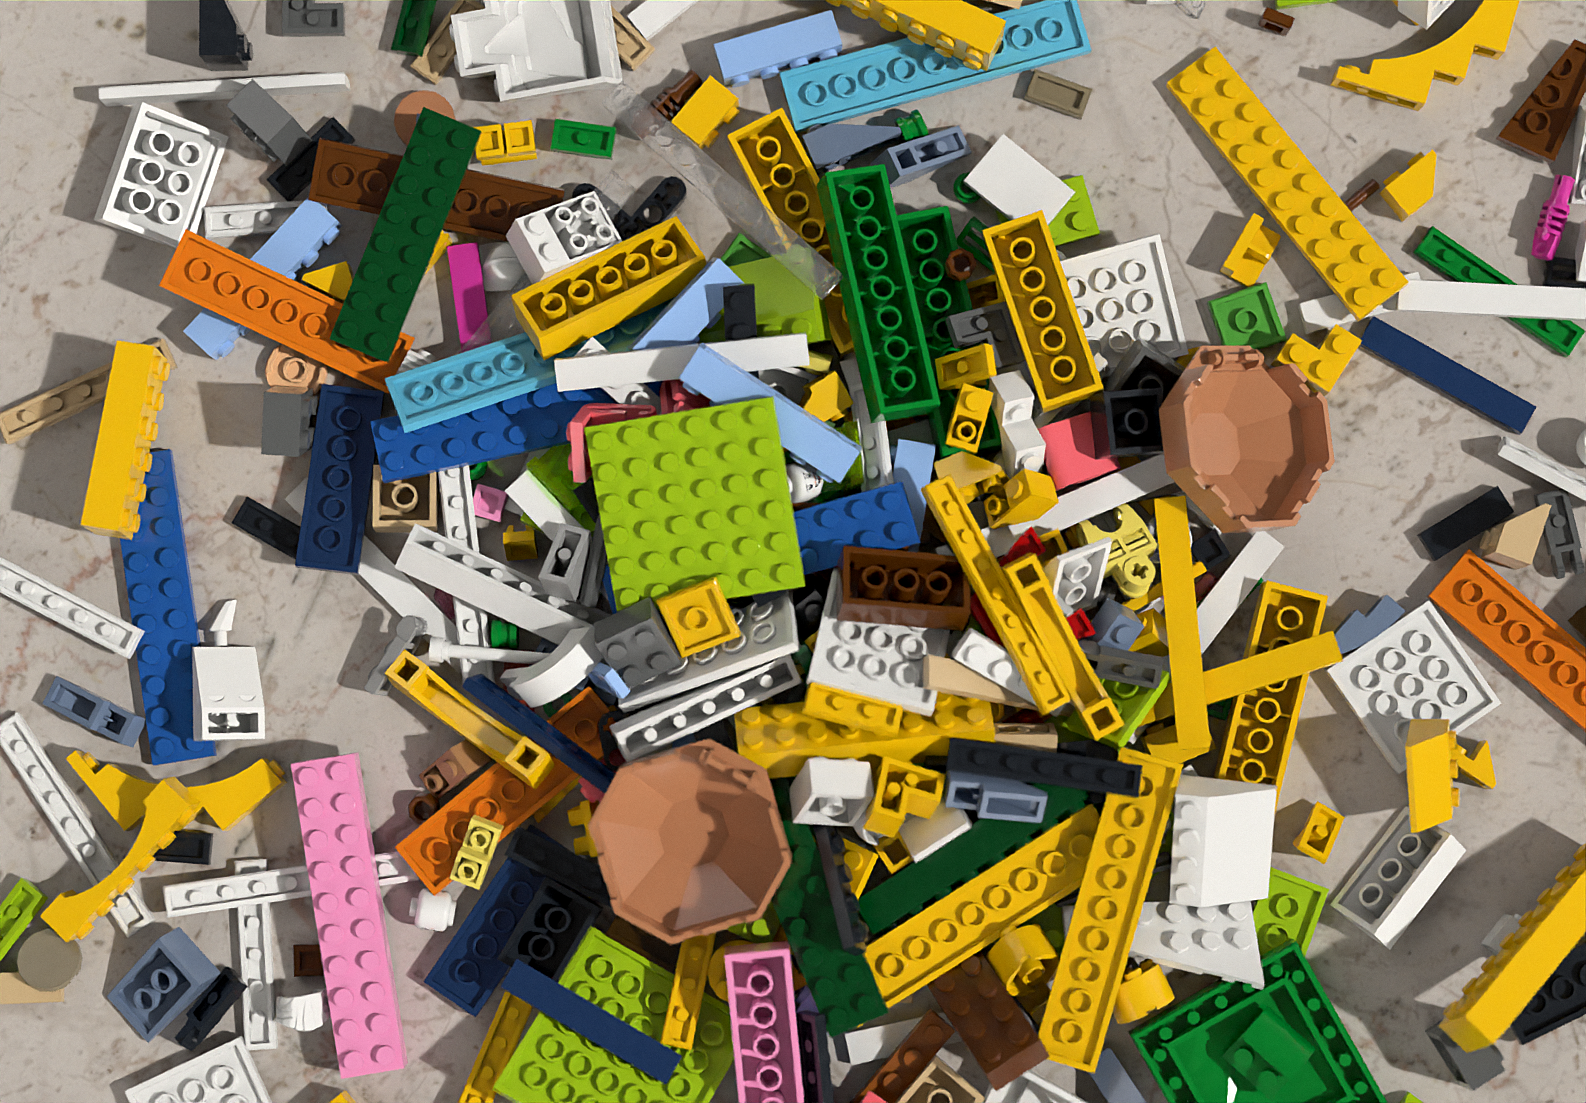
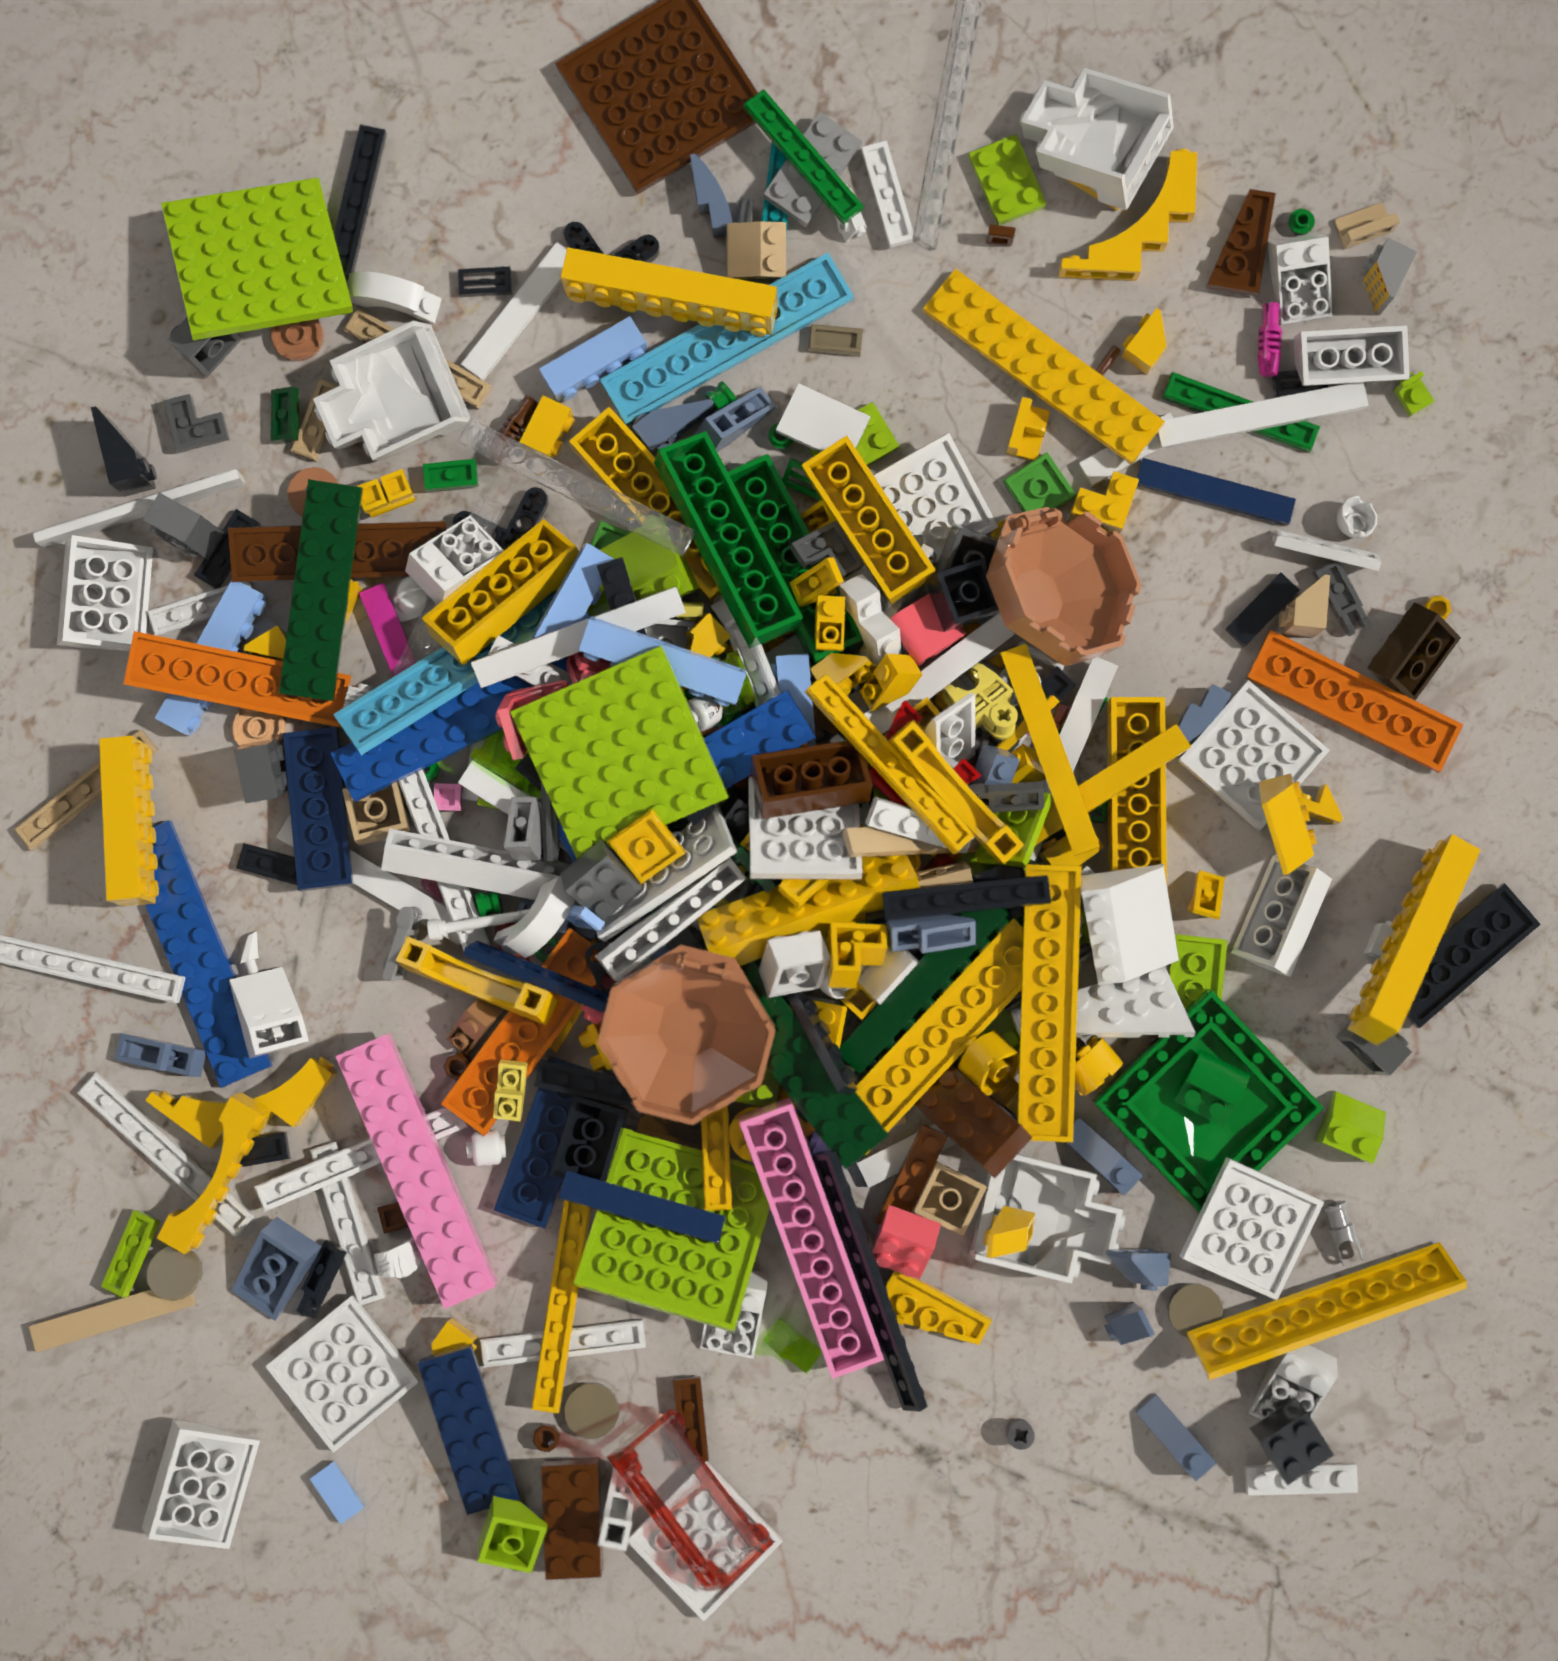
camera: 15 degrees left, 0 degrees up
(520, 544) = (482, 825): yellow tile -> none
(852, 709) = (794, 890): yellow tile -> none
(960, 264) = (790, 499): reddish brown tile -> none

